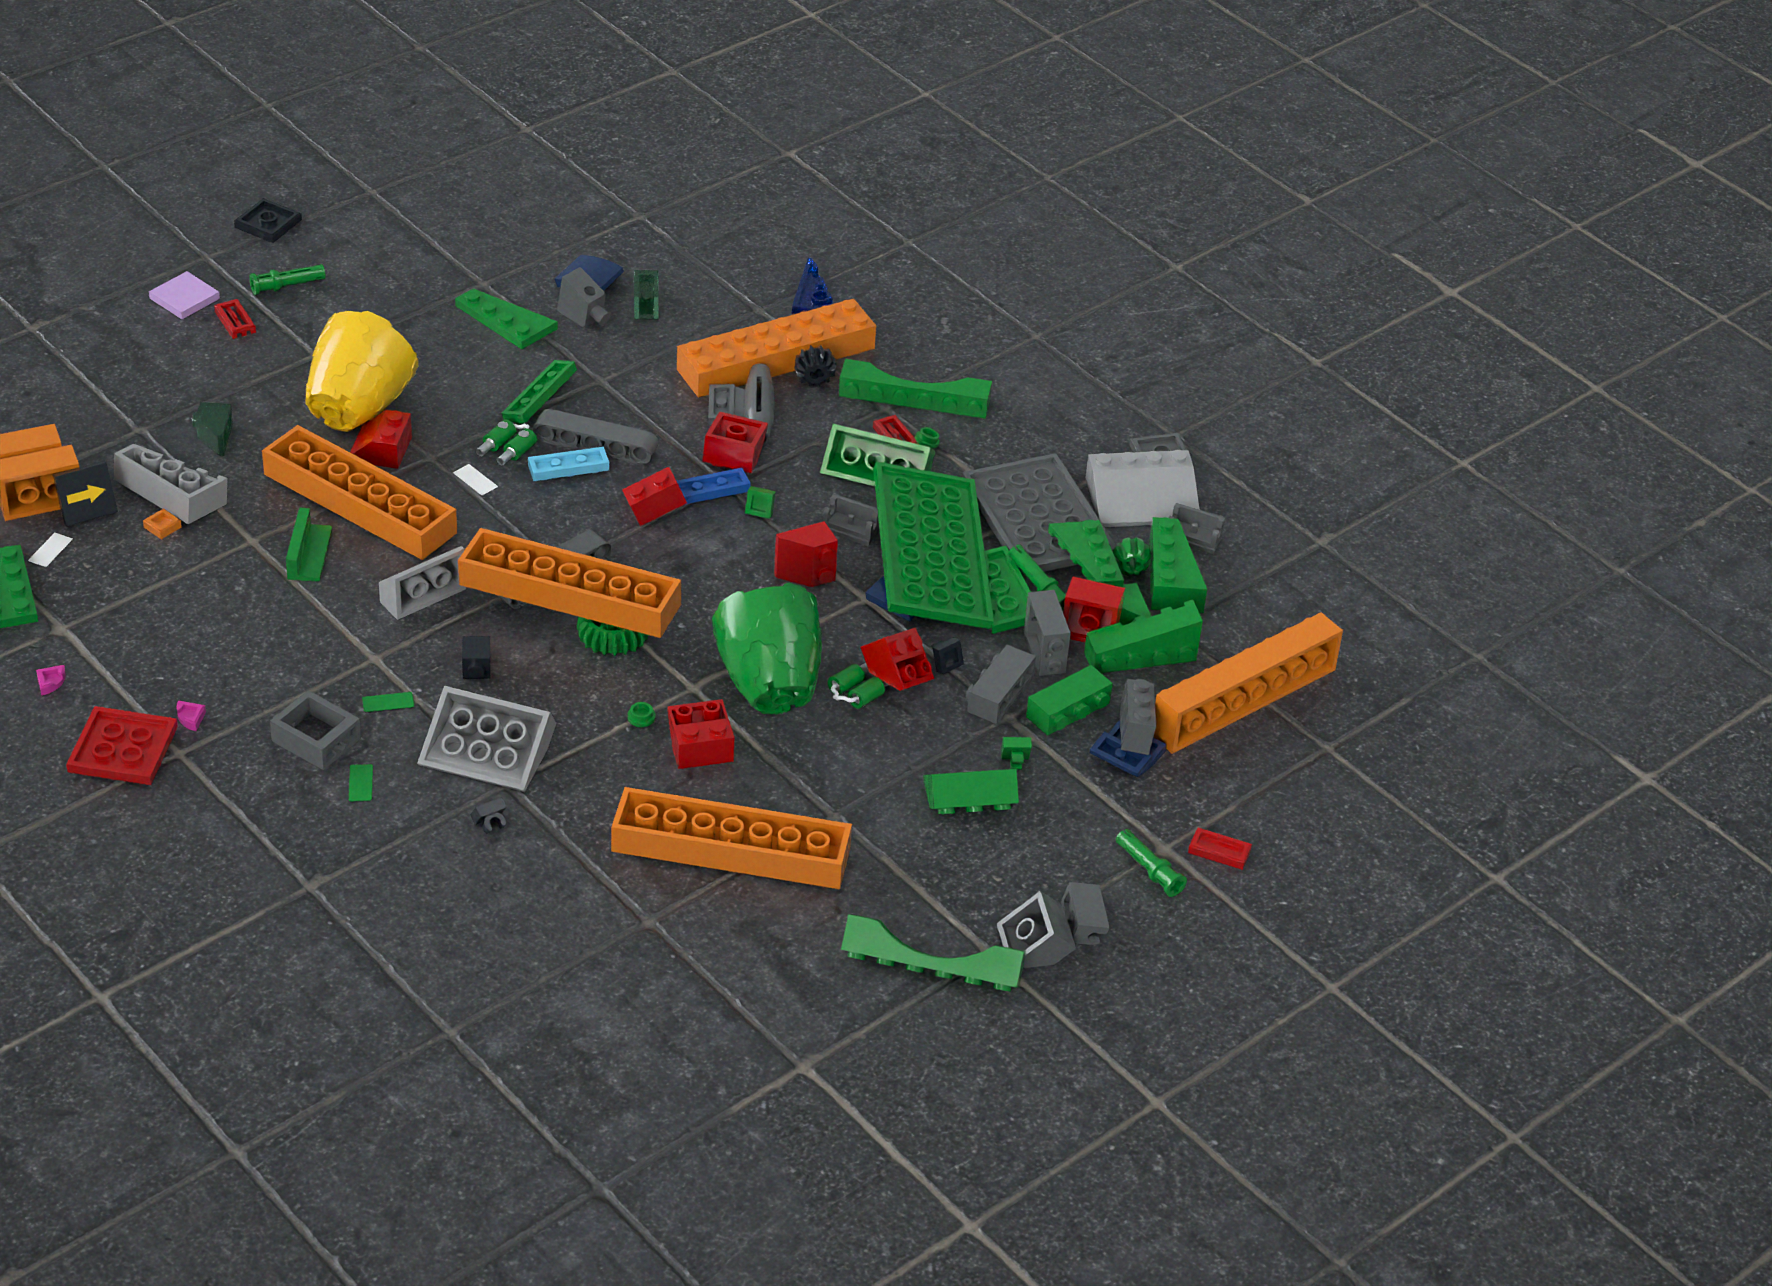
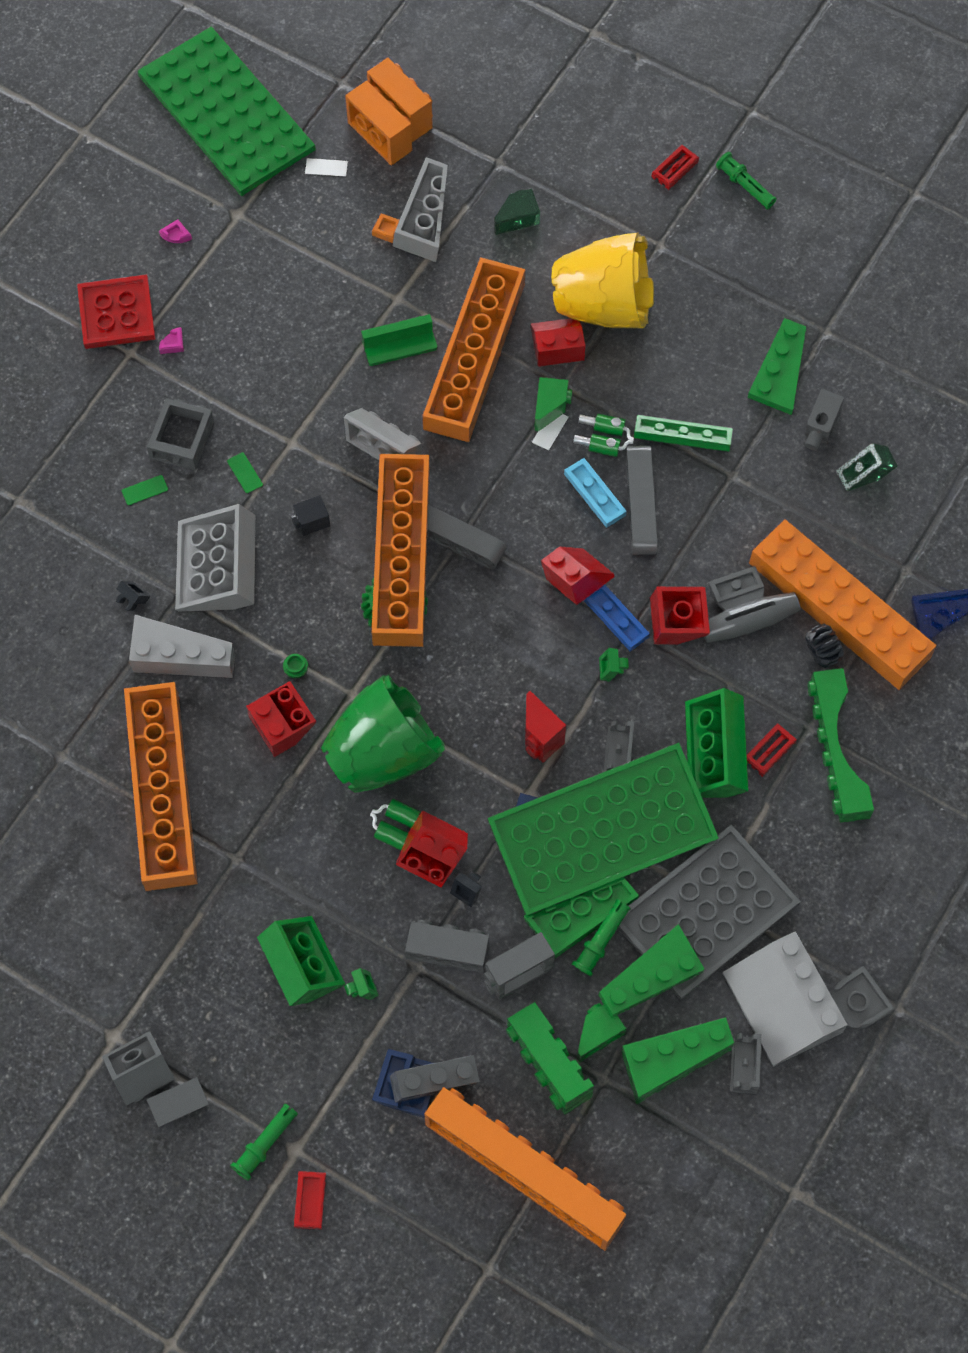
camera: 75 degrees right, 25 degrees up
(85, 493) = (380, 159): black tile -> none
(184, 295) = (687, 117): lavender tile -> none
(267, 220) = (826, 133): black tile -> none
(448, 463) = (551, 401): none -> green slope
(577, 793) = (178, 651): none -> light grey wedge
(599, 269) = (876, 410): dark blue slope -> none
(872, 938) = (81, 1035): green arch -> none
(927, 437) = (772, 779): green plate -> none
(1069, 700) = (448, 1013): green brick -> none
(1091, 606) = (566, 998): red slope -> none
(1132, 556) = (674, 1013): green piece -> none

